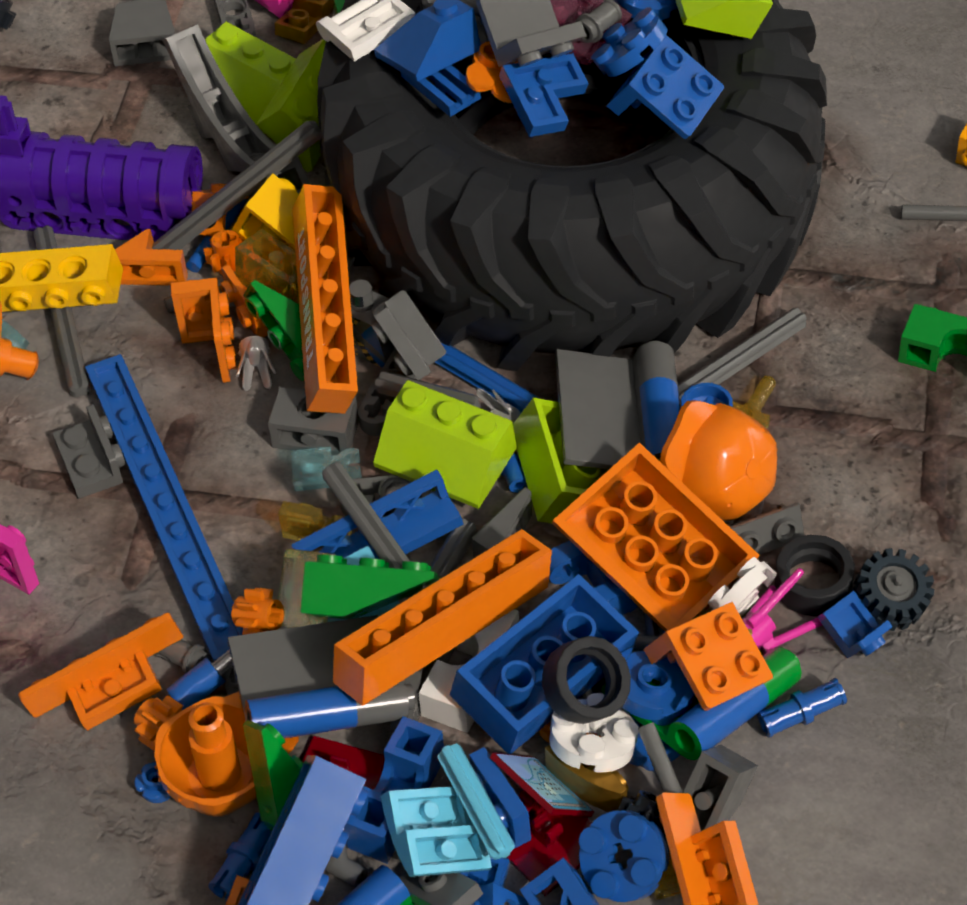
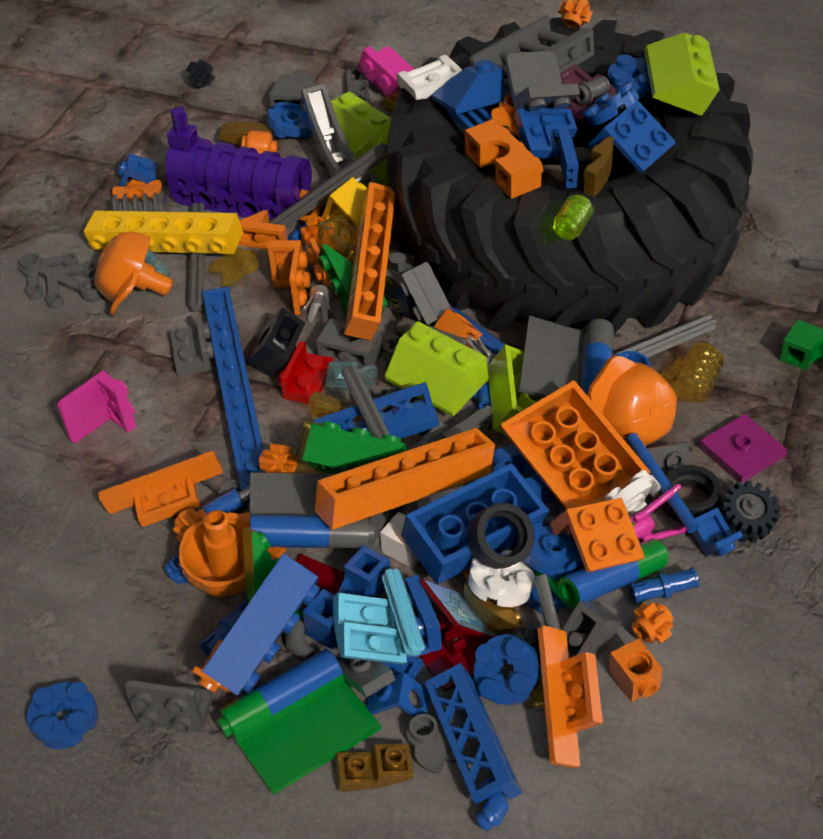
camera: 10 degrees right, 5 degrees down
(73, 102) = (233, 131): none -> pearl gold slope
(111, 121) = (259, 140): none -> orange head
(120, 320) = (235, 266): none -> clear yellow plate
(159, 83) = (288, 120): none -> blue plate
(211, 432) = (276, 342): none -> black brick
(260, 474) = (304, 374): none -> red bracket
(458, 374) = (458, 325): none -> orange brick
(518, 156) = (515, 166): none -> orange arch
(584, 133) = (567, 158): none -> blue tile
(609, 222) = (573, 217): none -> clear neon green brick
(631, 140) = (599, 169): none -> pearl gold slope
(768, 555) = (675, 501): none -> blue bar
(782, 813) = (636, 658): none -> orange brick
(796, 398) = (698, 372): none -> clear yellow piece
(796, 762) = (652, 622): none -> orange gear
(870, 498) = (743, 448): none -> magenta plate

